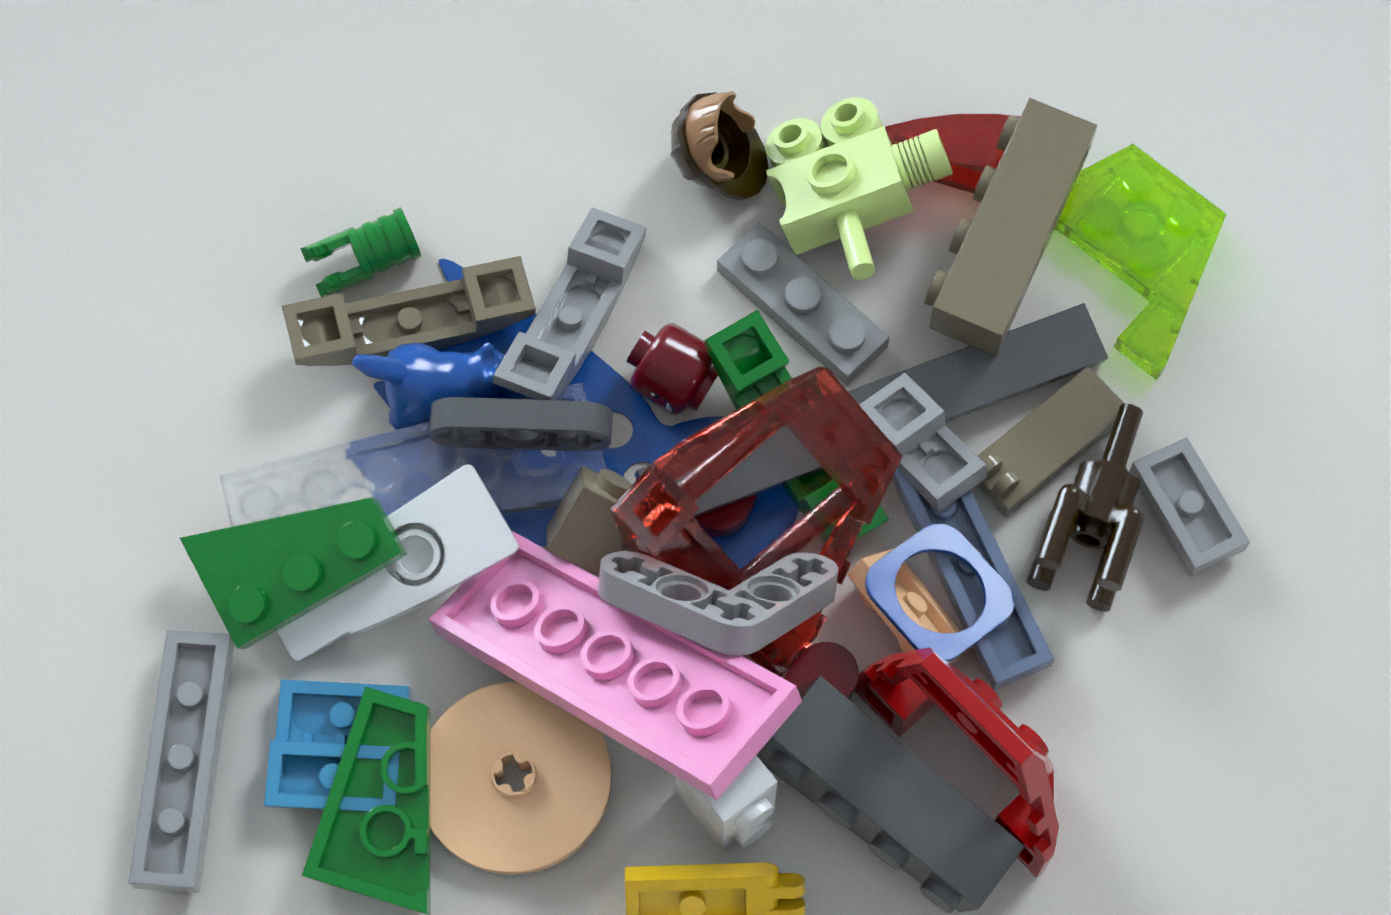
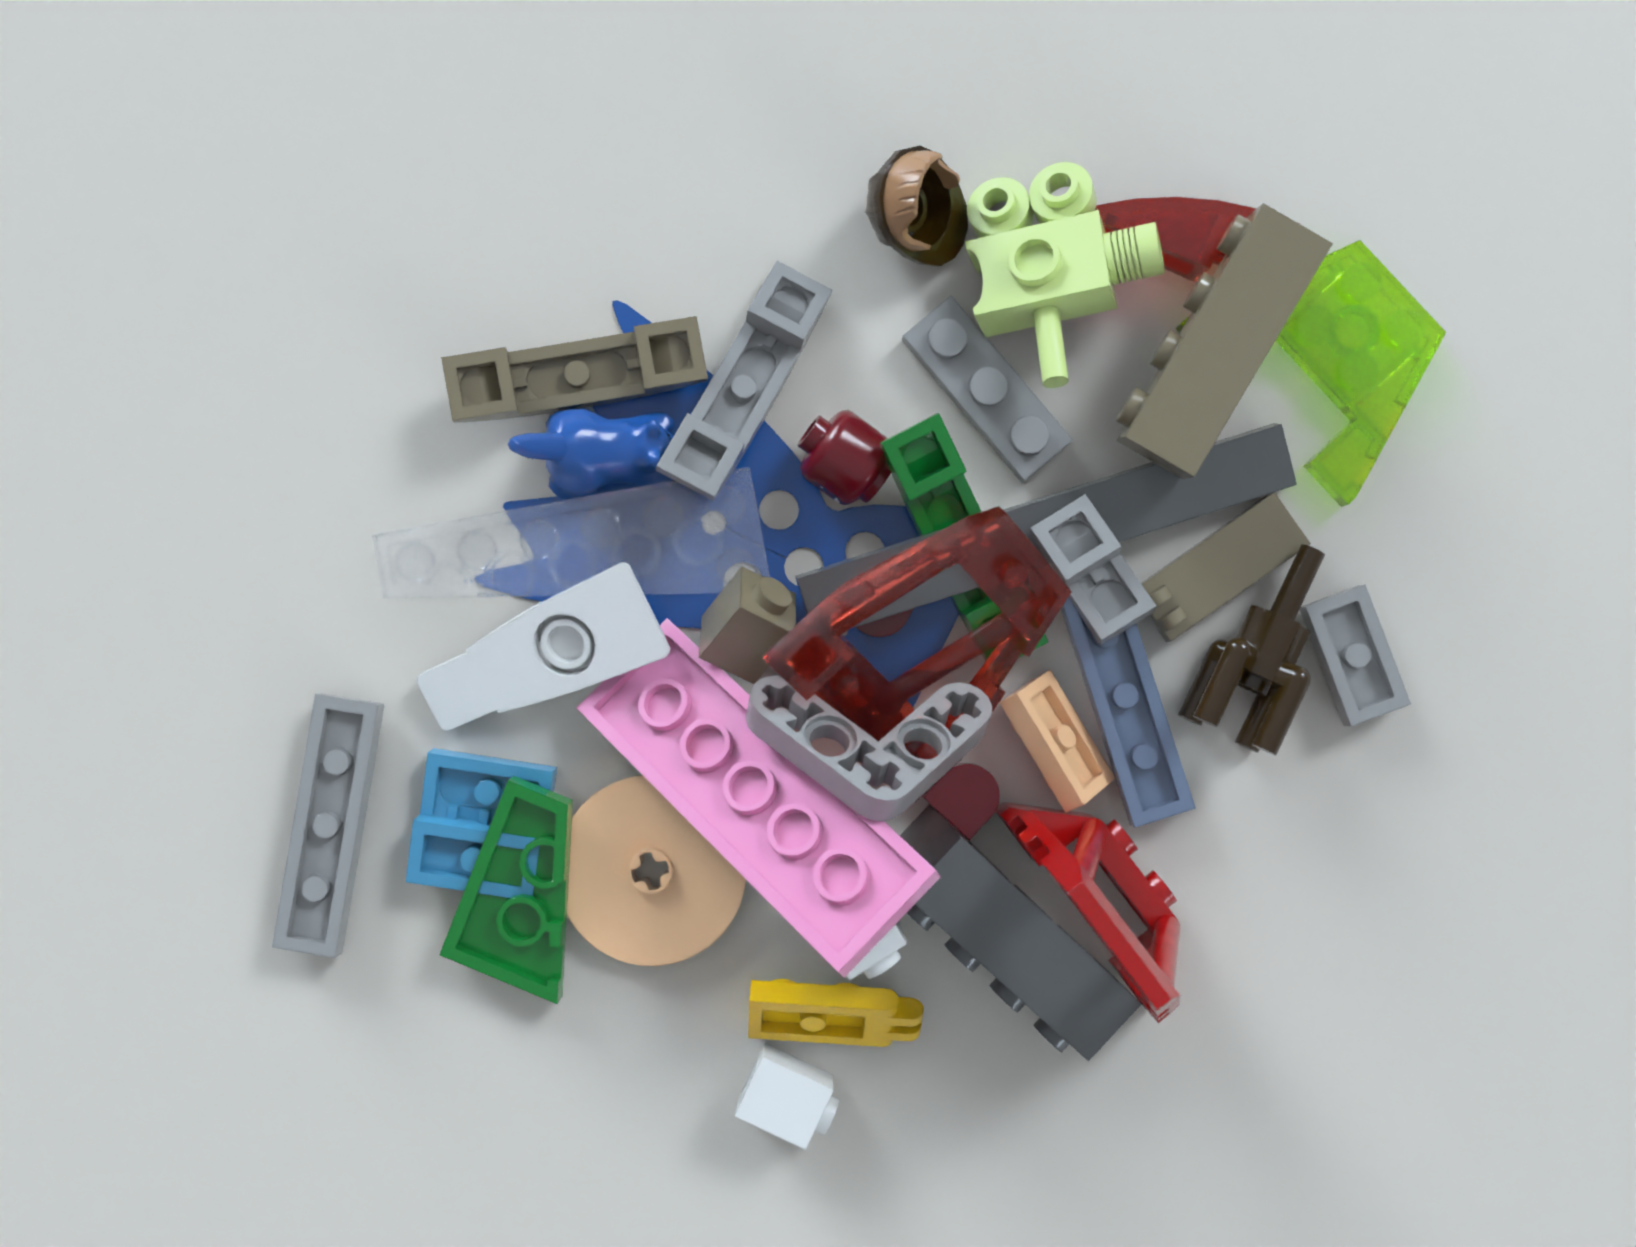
camera: 10 degrees right, 20 degrees up
(290, 564) = (437, 644): green wing -> none
(375, 246) = (544, 288): green hinge -> none
(520, 424) = (681, 516): dark grey beam -> none
(943, 539) = (1148, 742): piece -> none

